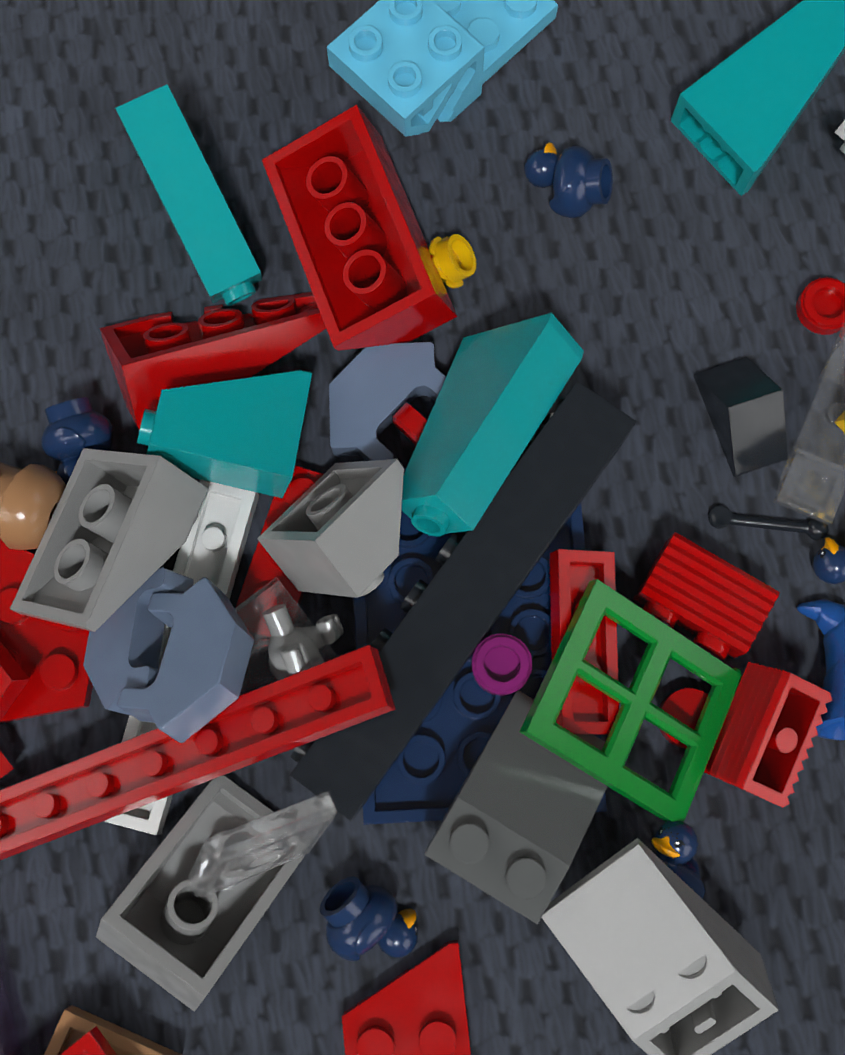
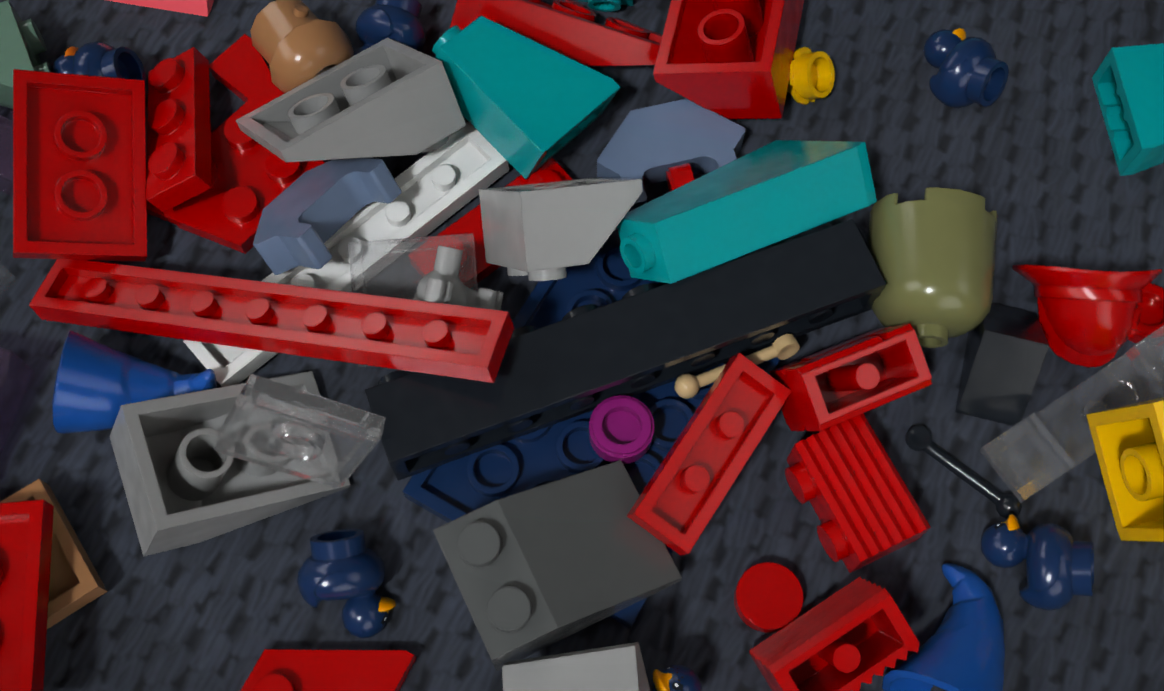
camera: 30 degrees right, 10 degrees down
(73, 895) = (99, 379): none -> blue hat
(200, 664) = (353, 250): sand blue piece -> none
(529, 594) = (782, 348): none -> tan hinge
(609, 763) = (721, 536): green window -> none
(650, 508) = (853, 378): none -> red brick
(656, 375) = (934, 262): none -> olive cylinder
(785, 331) = (1087, 311): none -> red piece

